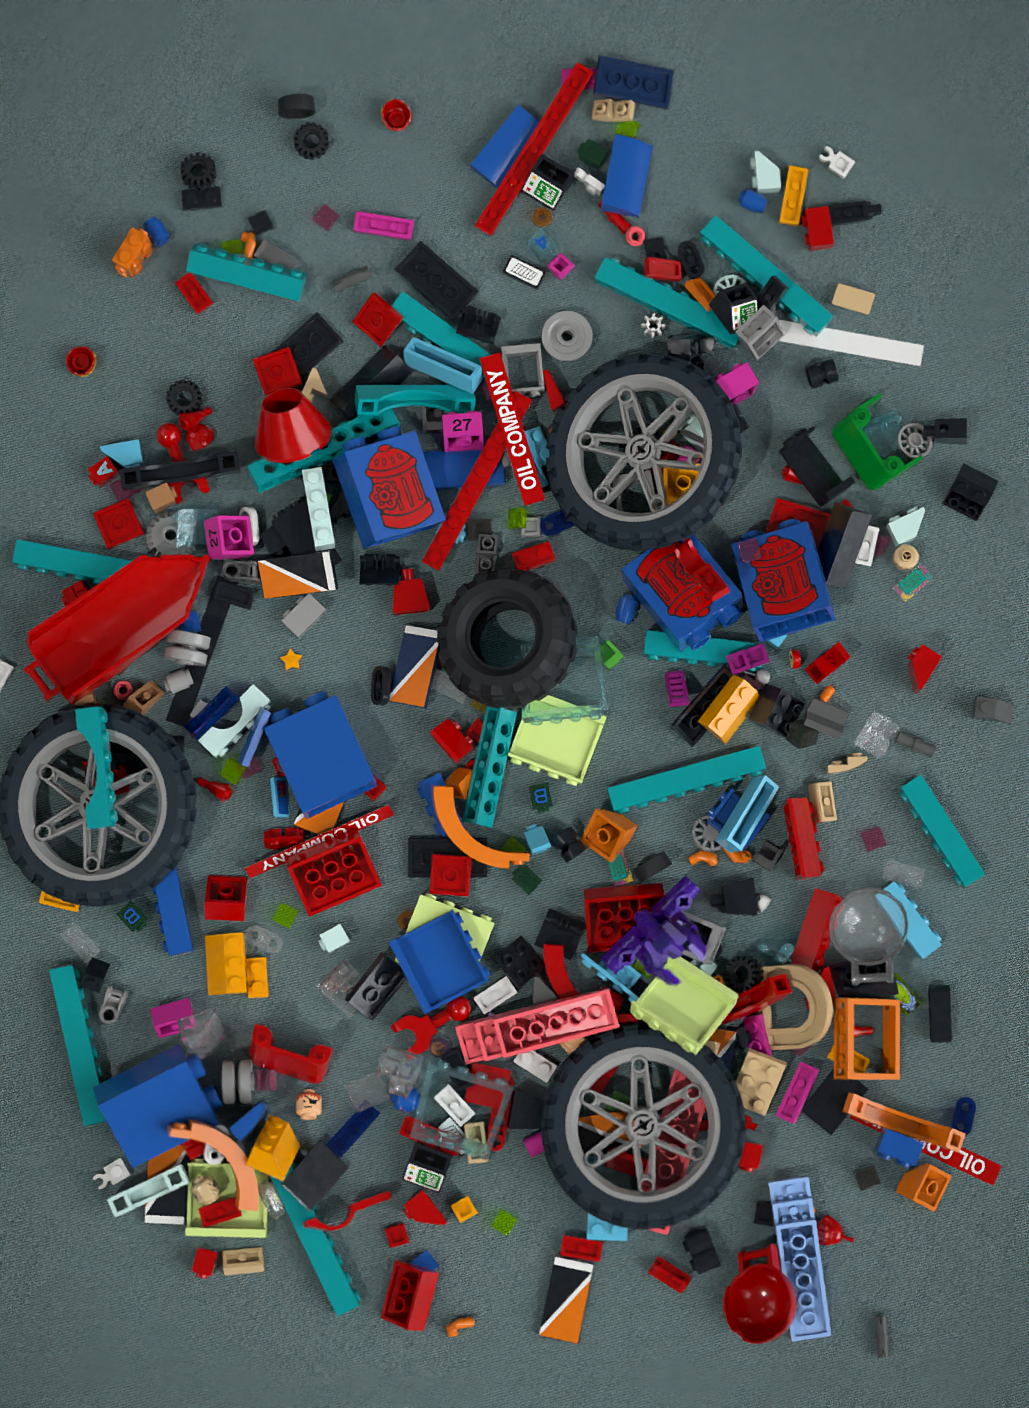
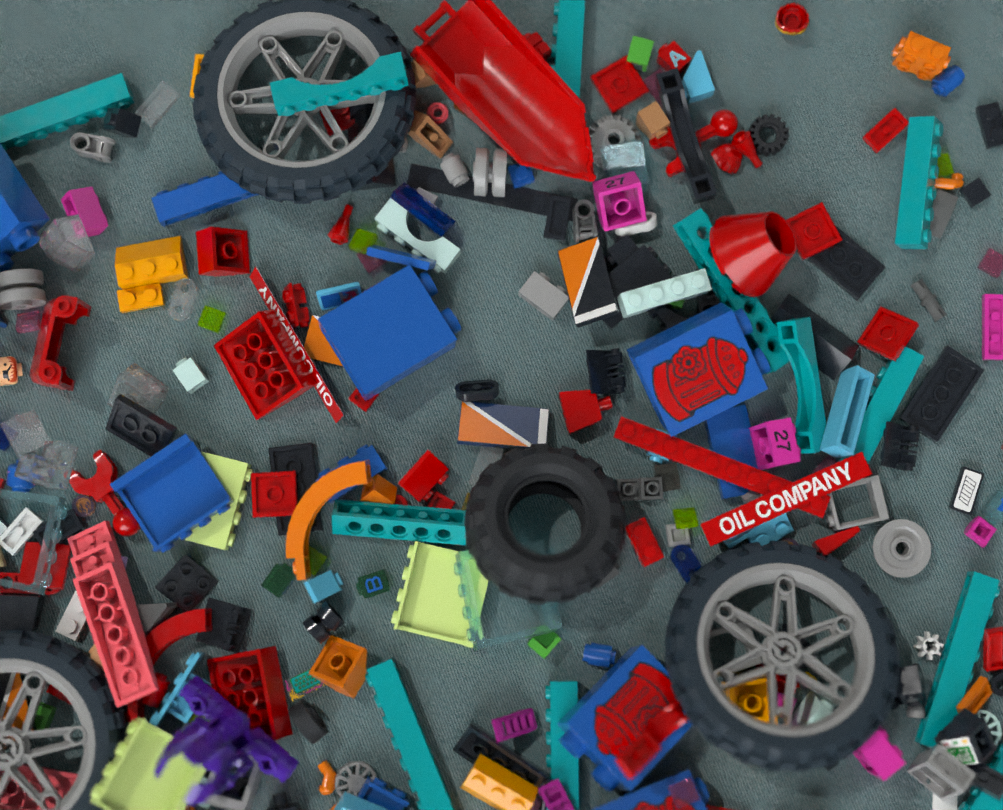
camera: 85 degrees right, 0 degrees up
(92, 500) = (640, 51): none -> bright green panel
(133, 917) = (190, 155): clear green brick -> none
(291, 660) = (494, 289): light orange piece -> none
(314, 385) = (802, 271): tan slope -> none
(402, 916) = (221, 446): clear orange plate -> none
(432, 421) = (782, 408): dark grey panel -> none
(495, 995) = (147, 561): white plate -> none

